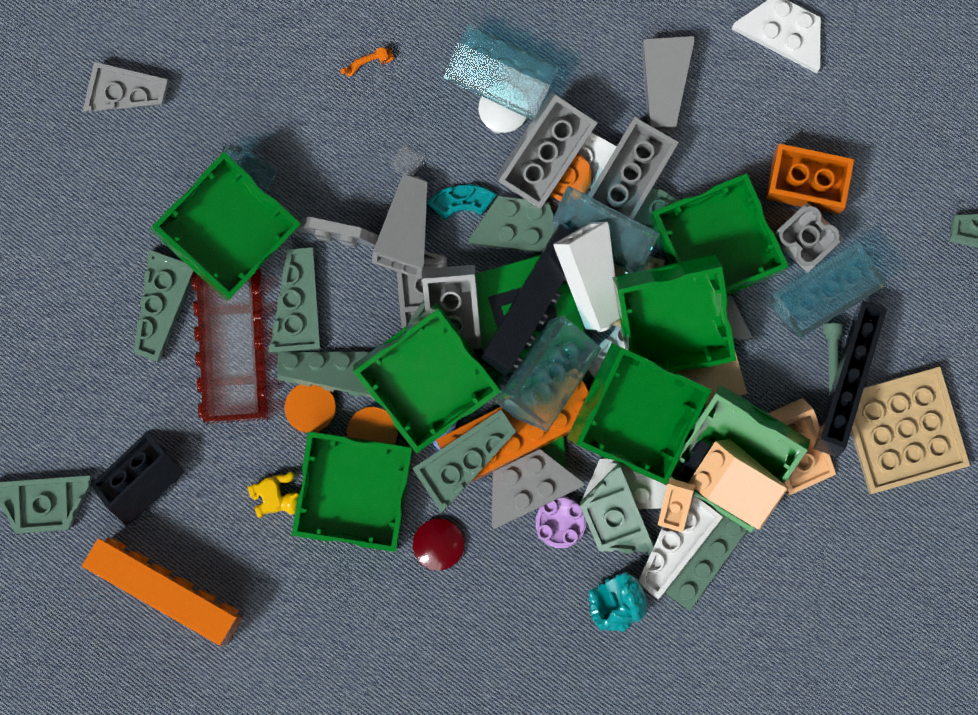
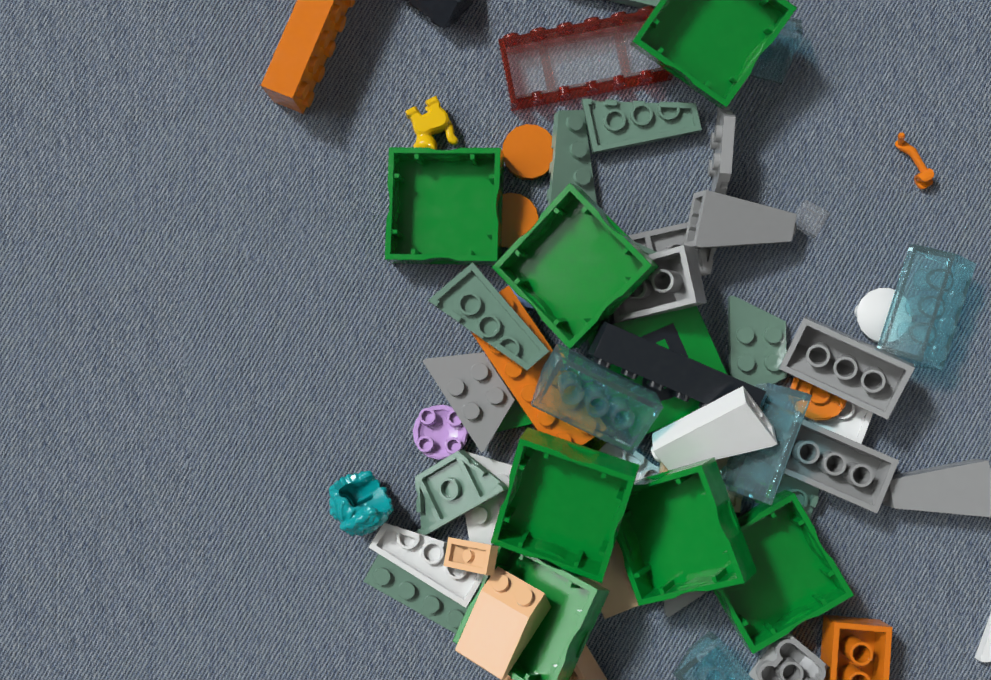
camera: 90 degrees right, 5 degrees up
(438, 544) = (401, 305): dark red dish -> none
(459, 199) = (776, 282): teal tile -> none
(699, 452) = (532, 576): black plate -> none

